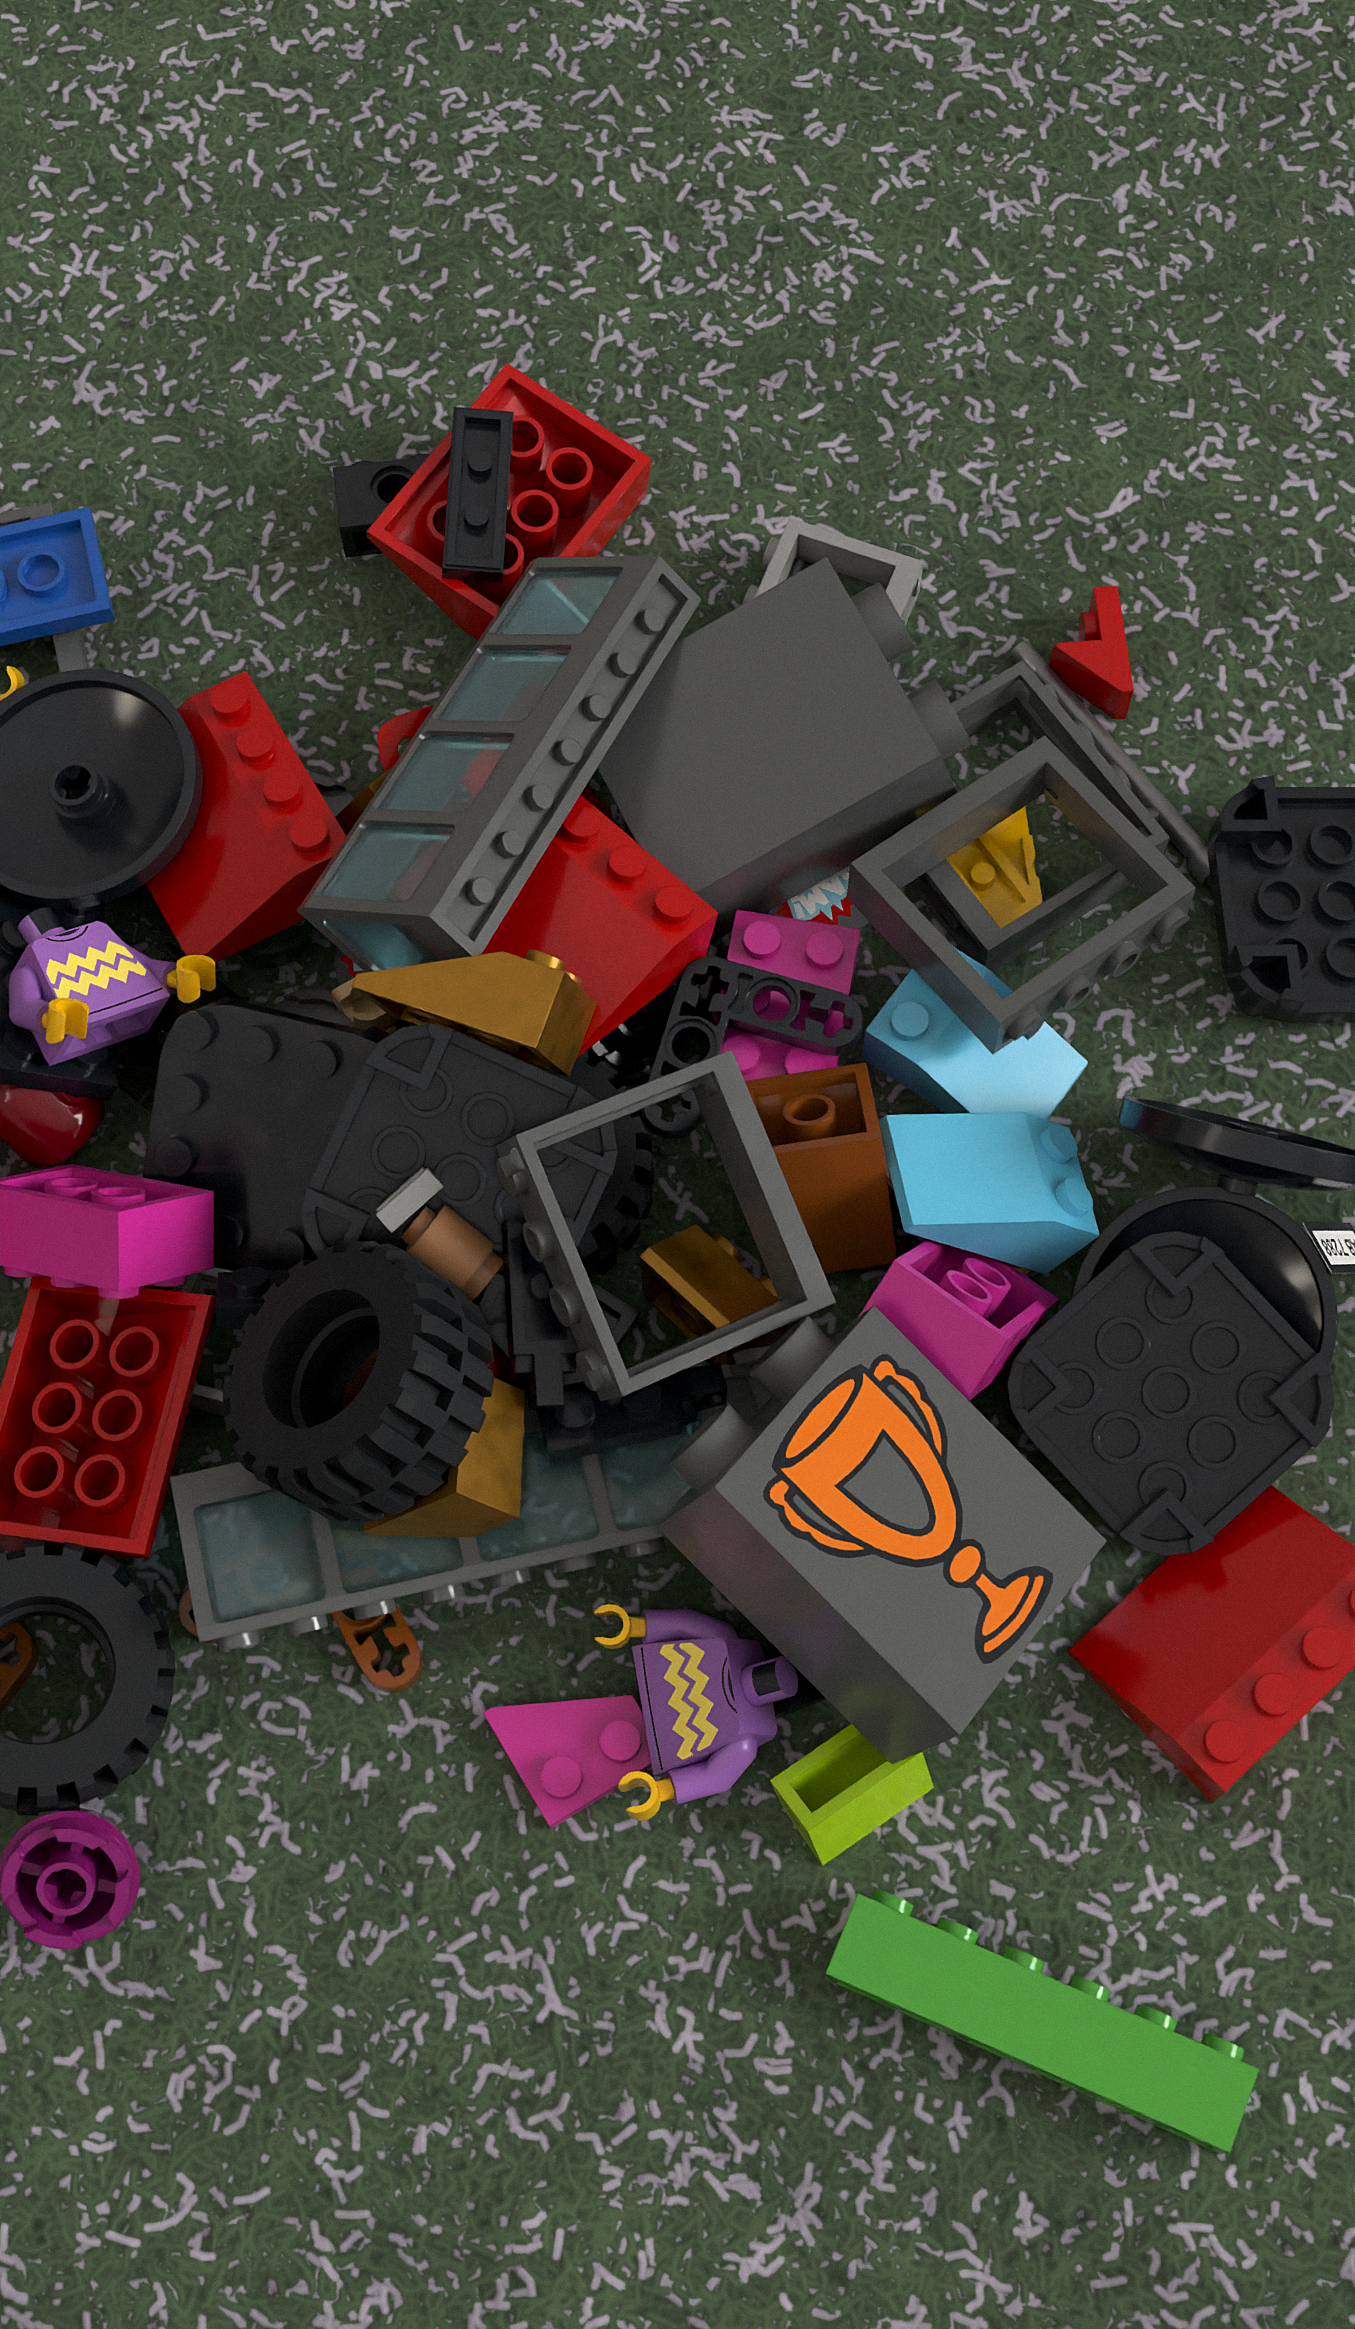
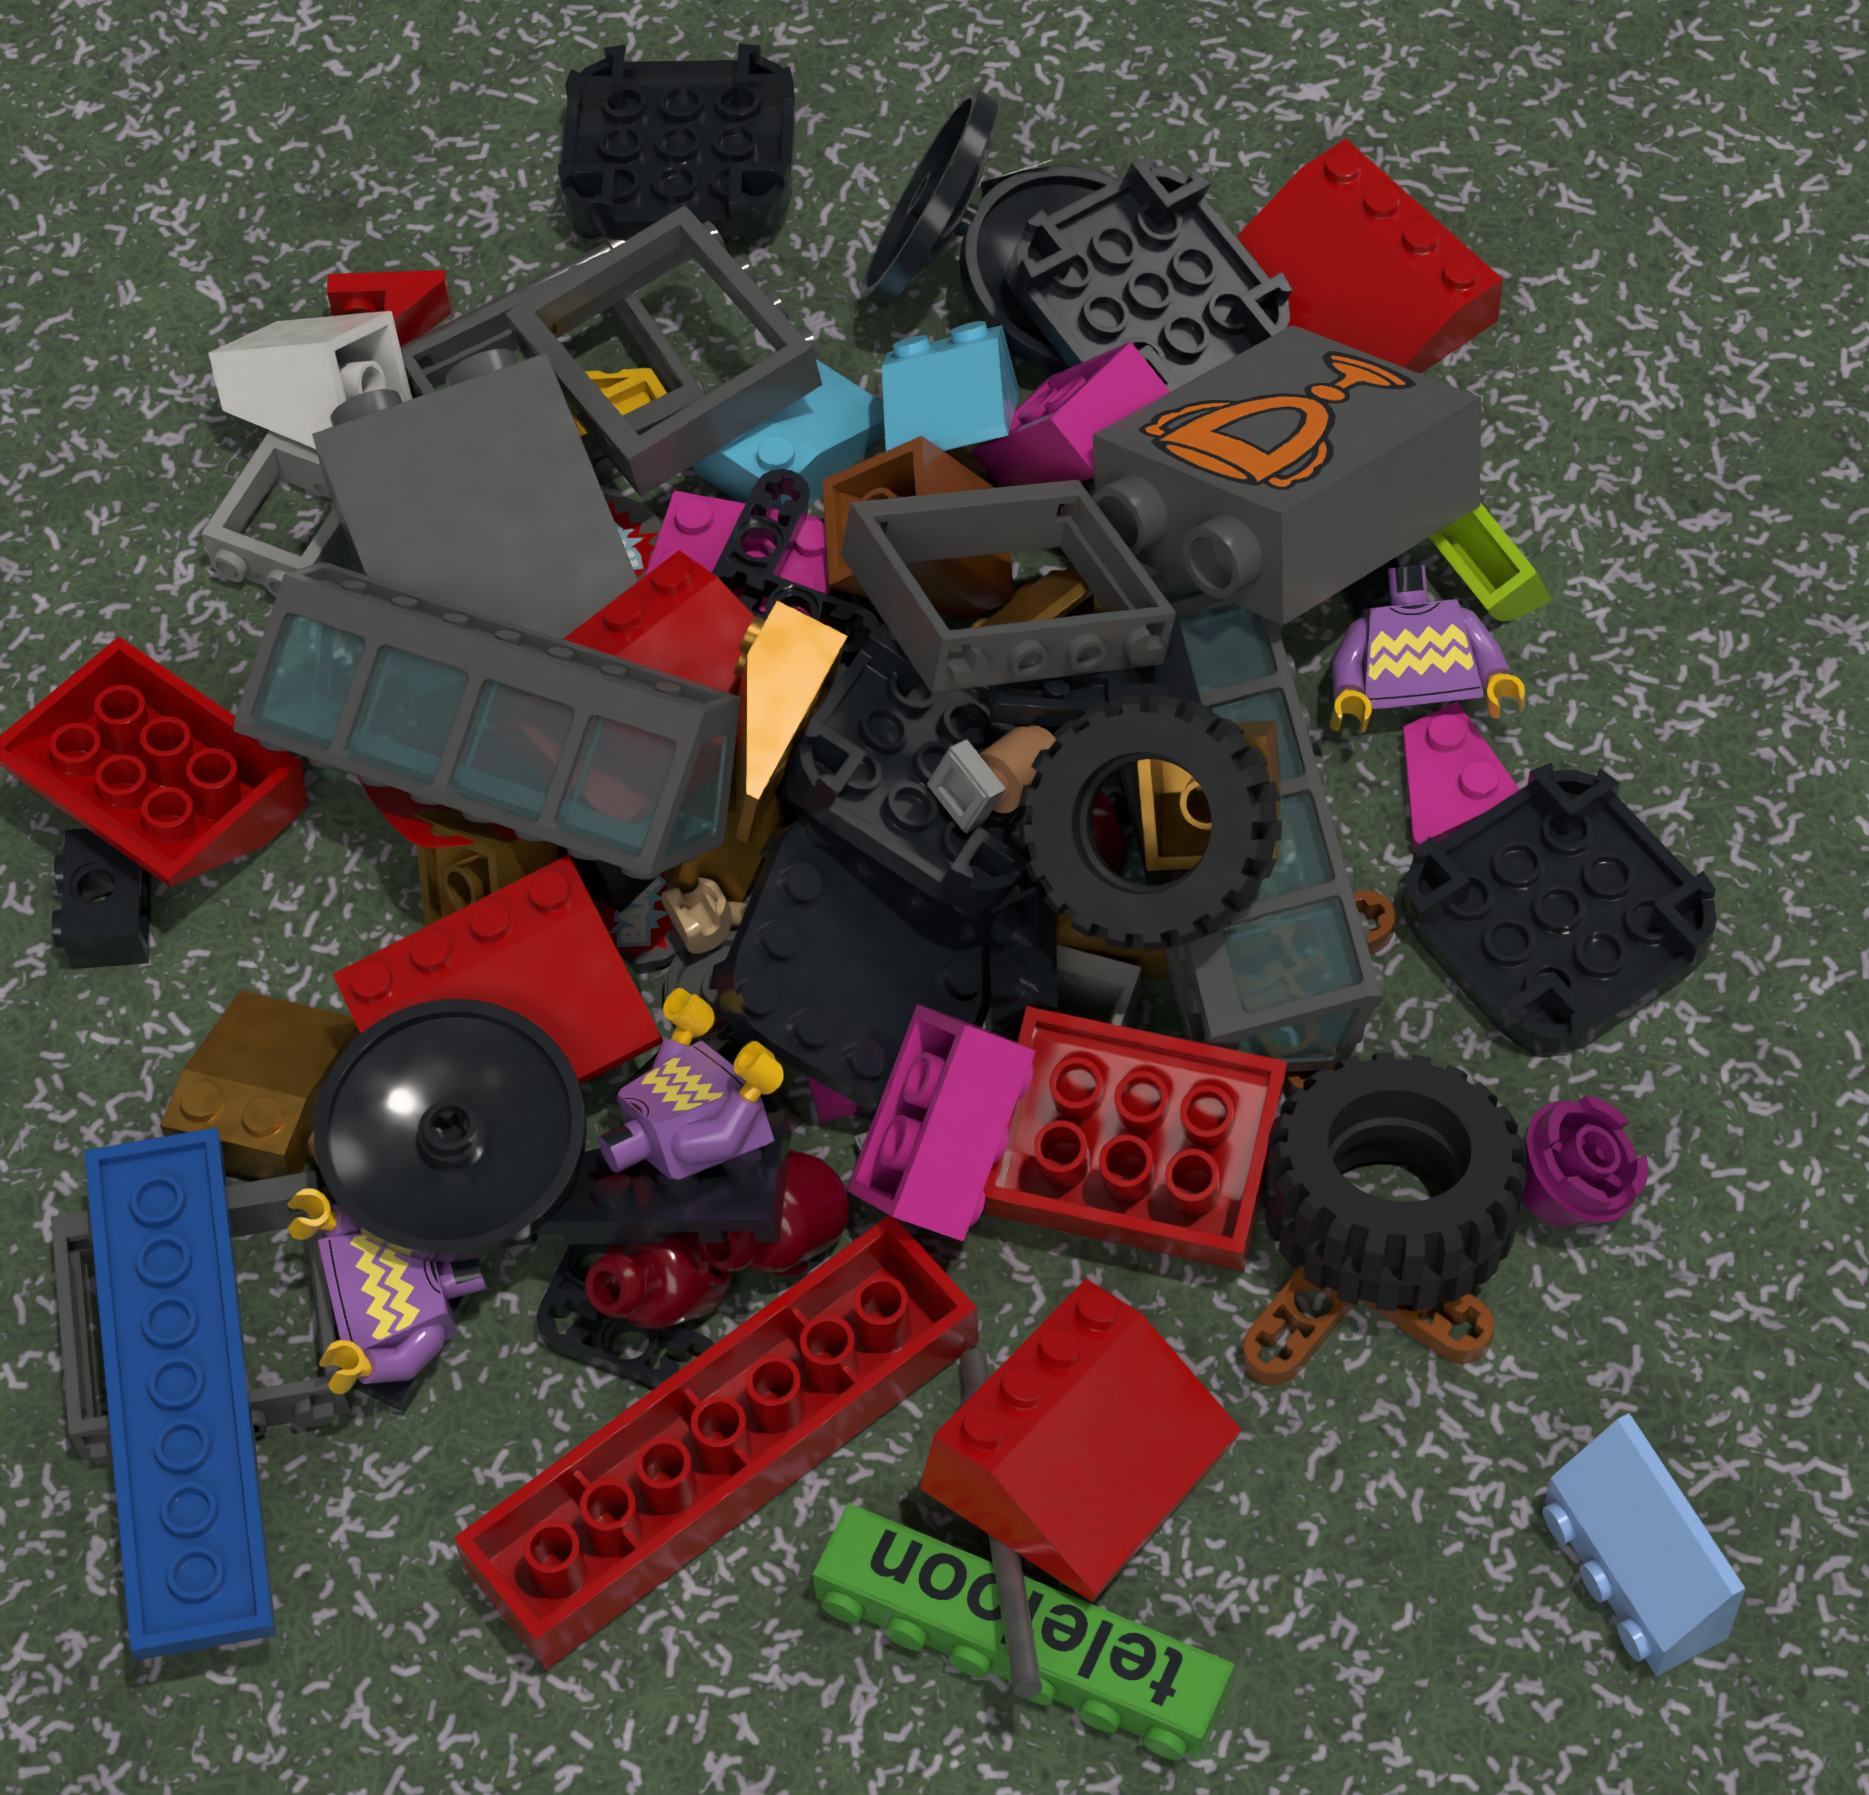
camera: 85 degrees left, 10 degrees down
(194, 638) = (260, 1082): none -> pearl gold slope
(399, 1865) = (1559, 911): none -> black plate
(477, 495) = (143, 776): black tile -> none
(977, 591) = (304, 368): none -> white slope
(1043, 2023) = (1686, 441): bright green brick -> none

